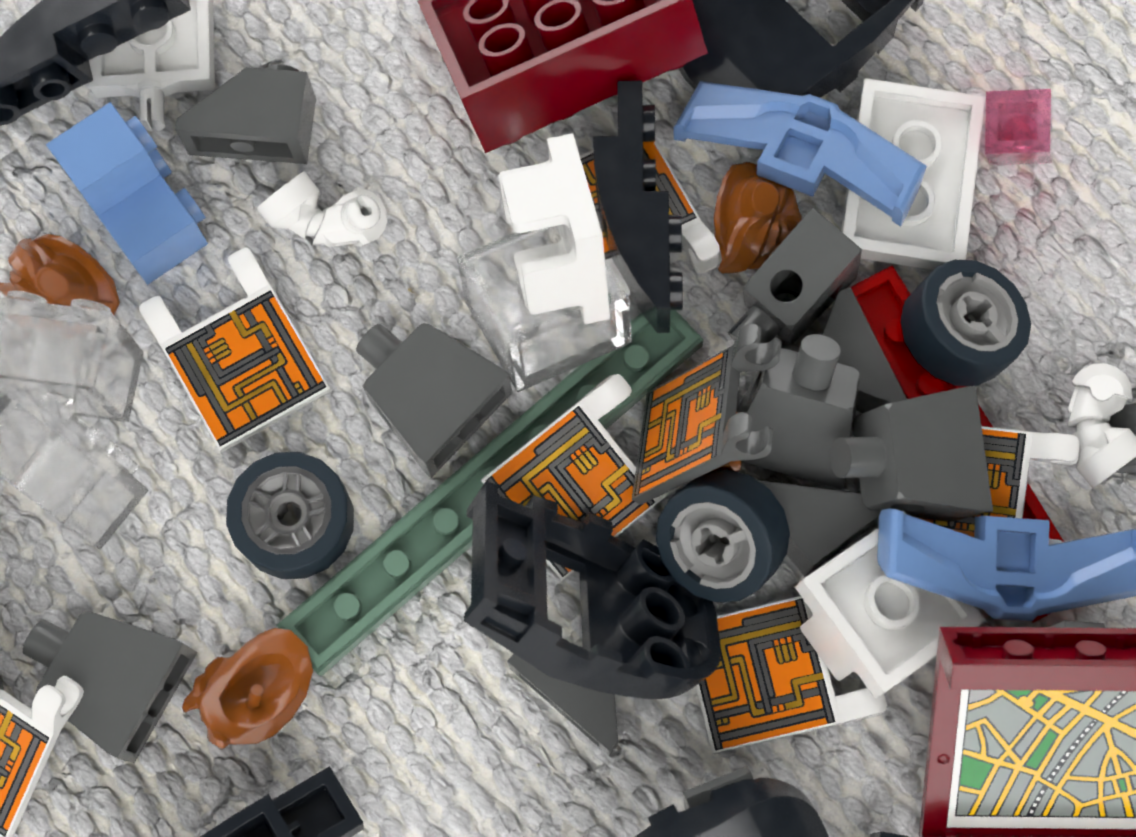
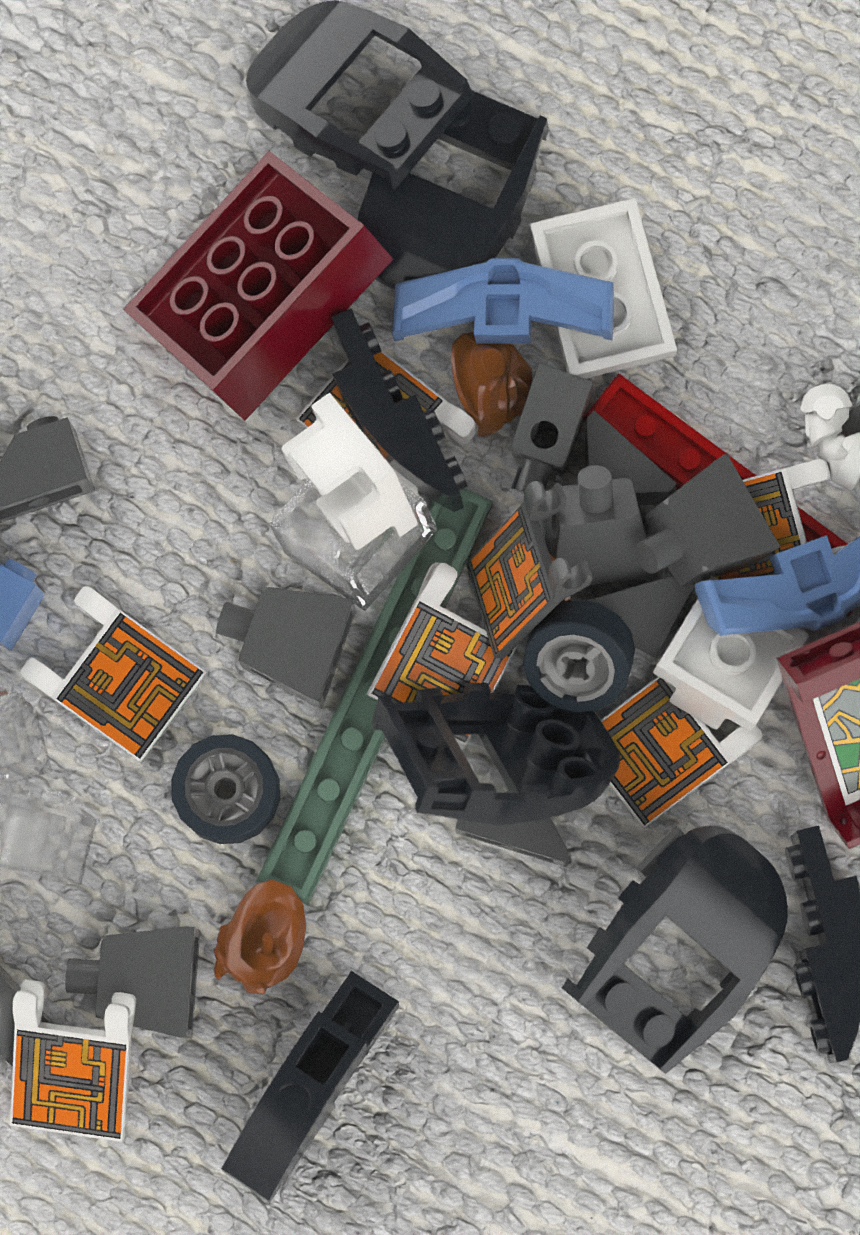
camera: 20 degrees left, 5 degrees up
(353, 219) = (157, 525): white arm -> none
(965, 323) = (692, 423): black wheel -> none
(1019, 127) = (673, 215): clear pink brick -> none

